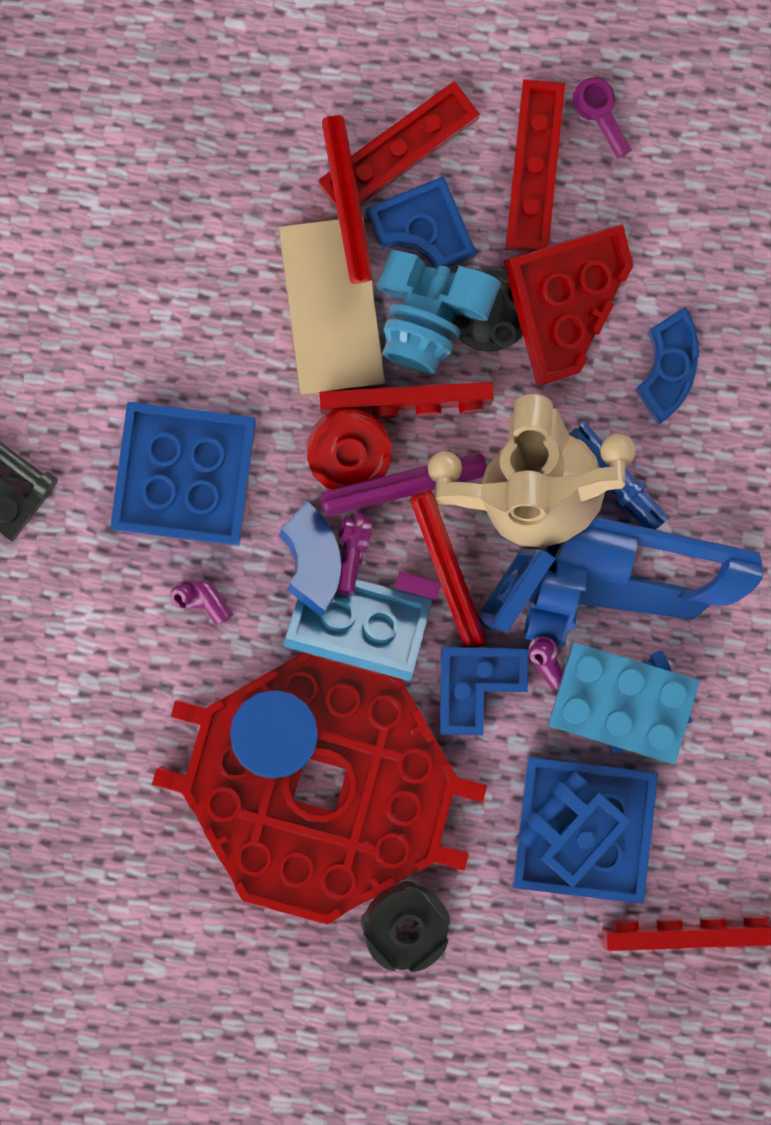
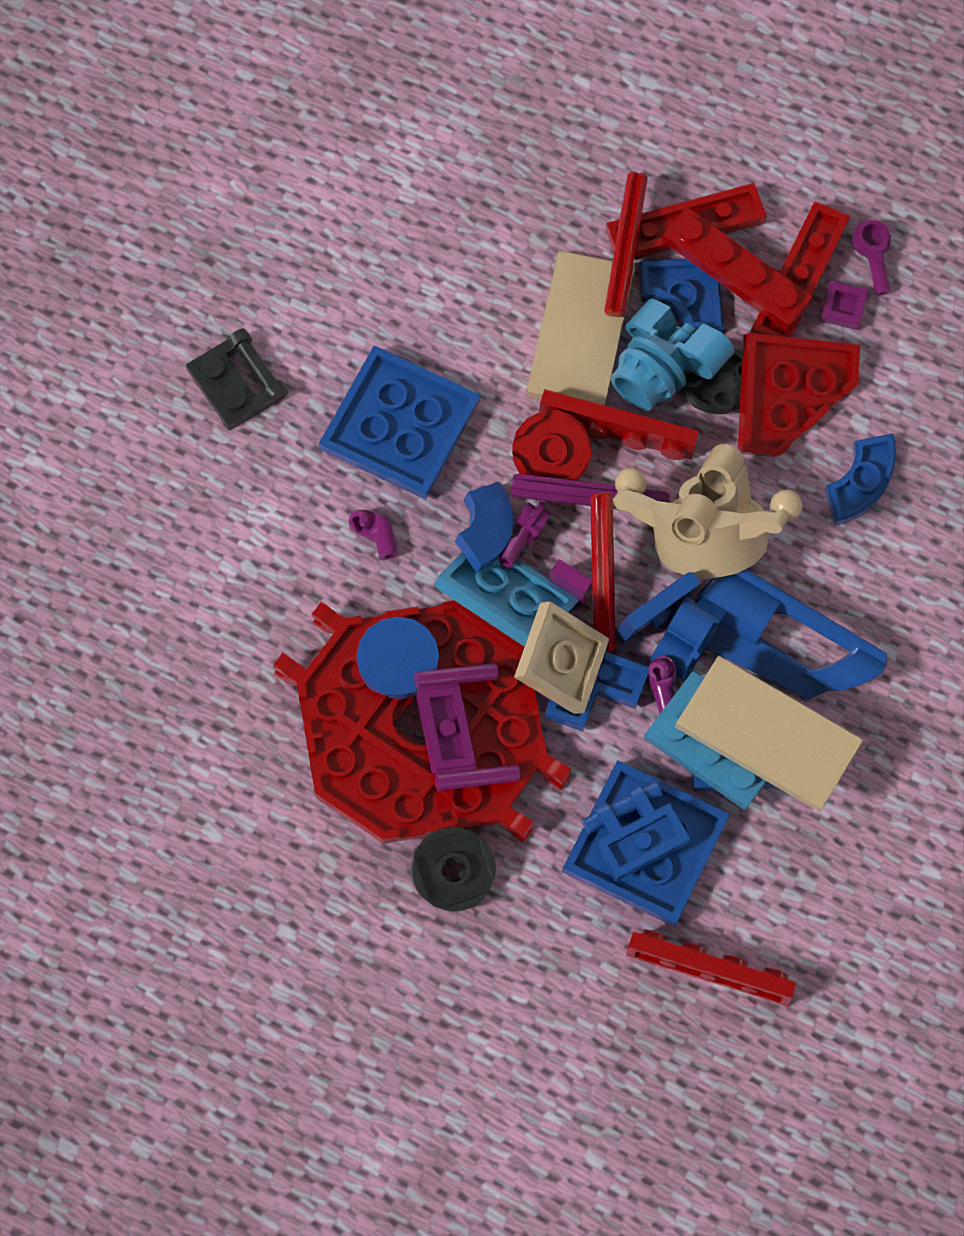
camera: 20 degrees right, 15 degrees down
(352, 795) = (447, 728): none -> magenta plate
(440, 681) = (562, 657): none -> tan plate
(469, 185) = (737, 269): none -> red plate
(589, 182) = (843, 305): none -> magenta tile
(632, 494) = (787, 567): blue pin -> none
(674, 687) = (769, 733): none -> tan tile

